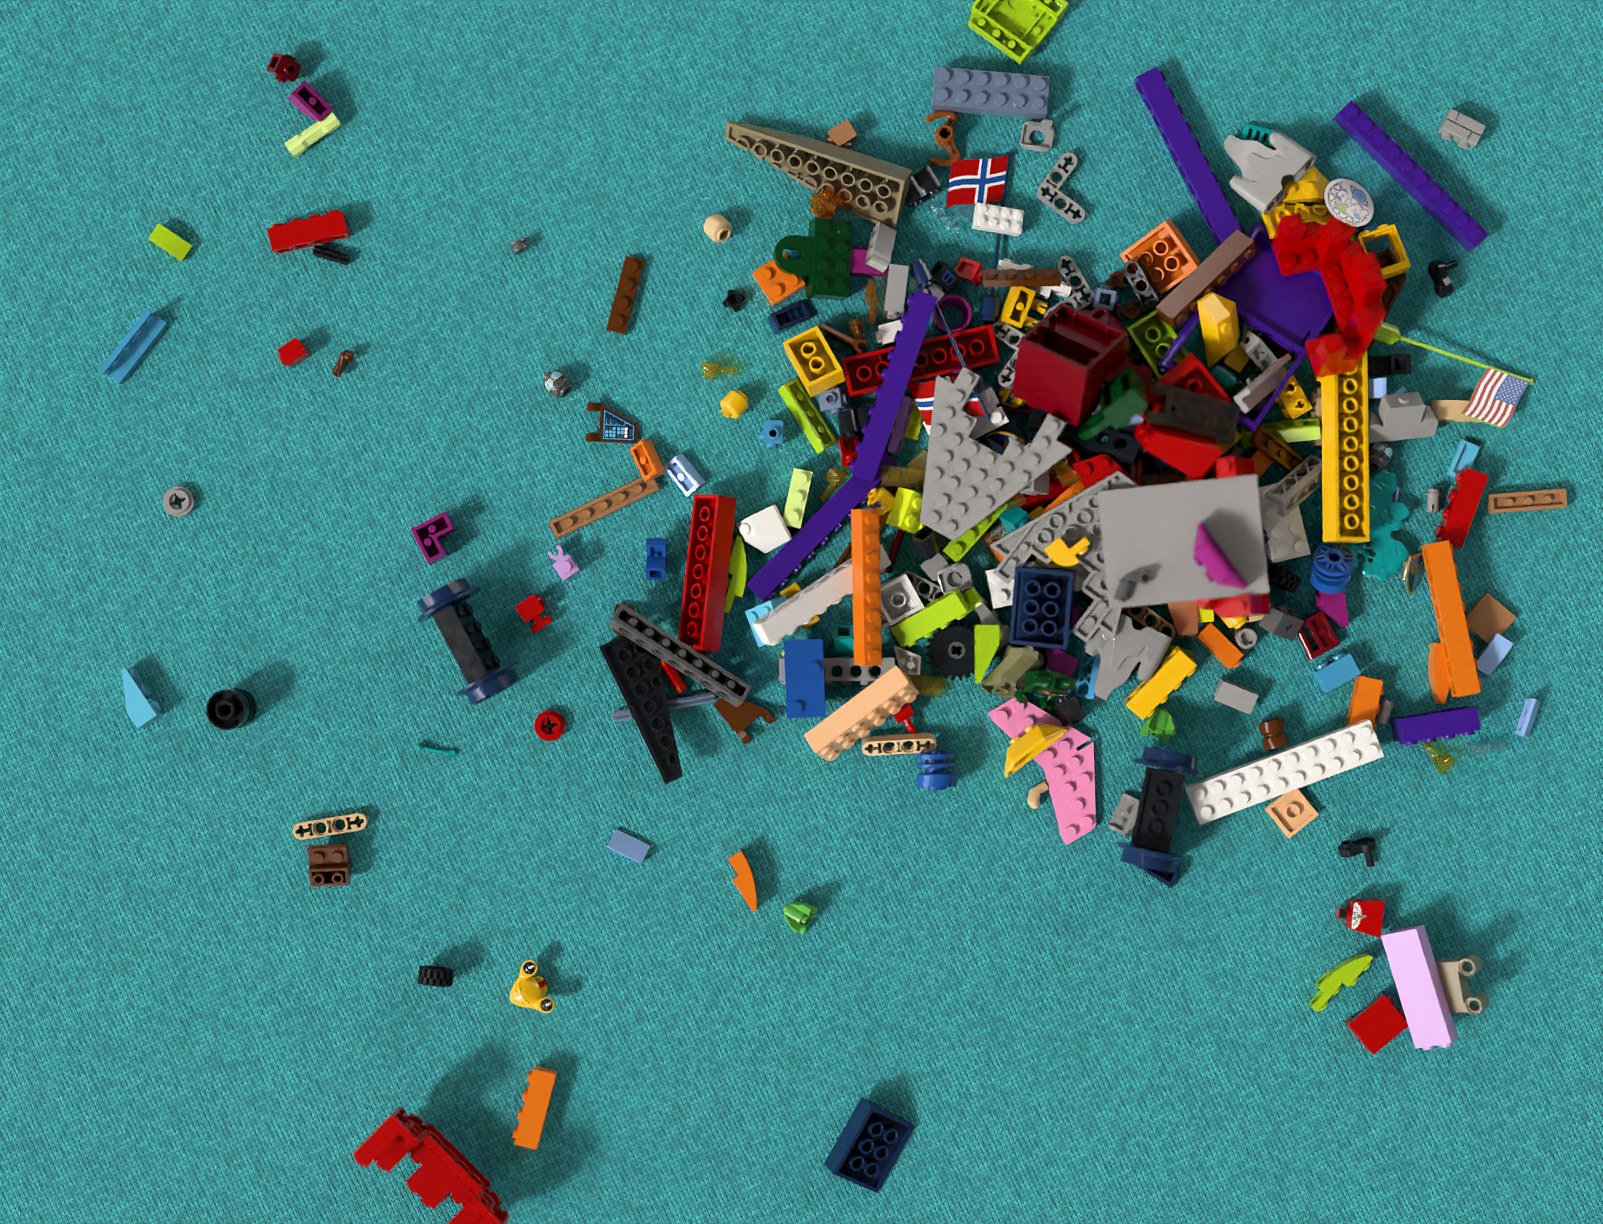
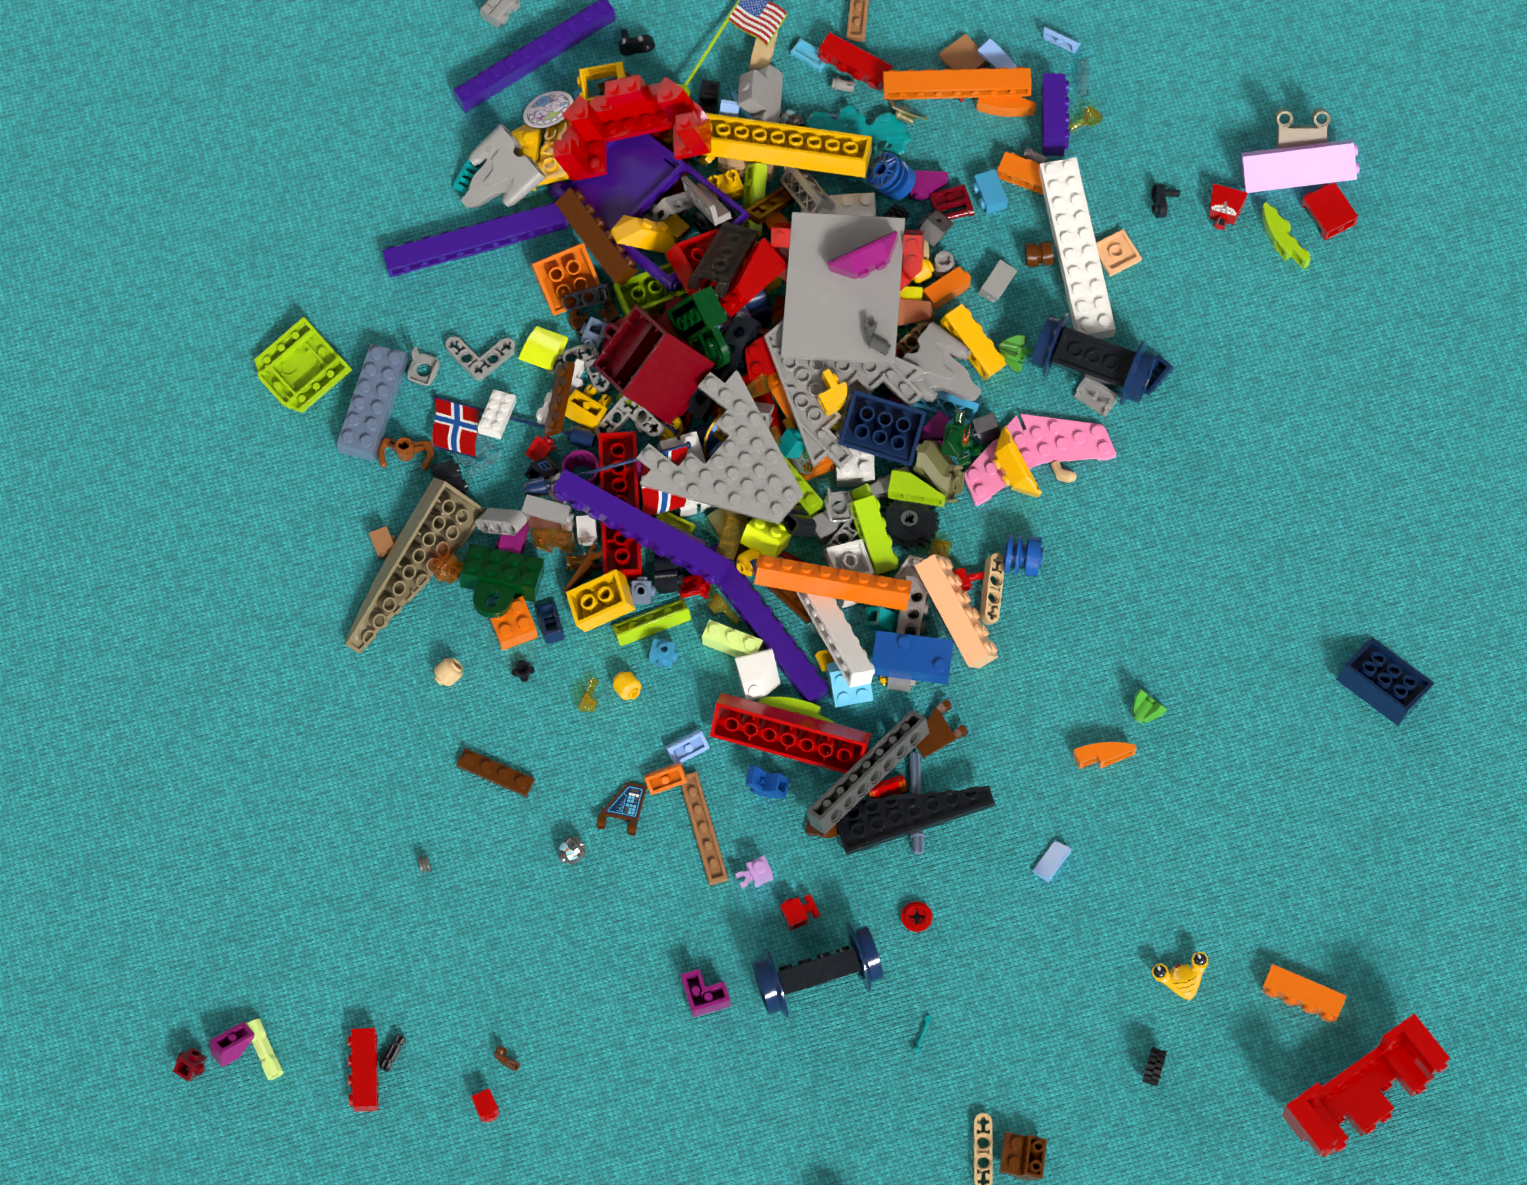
camera: 80 degrees left, 20 degrees down
(1079, 251) = (543, 348): none -> neon yellow slope

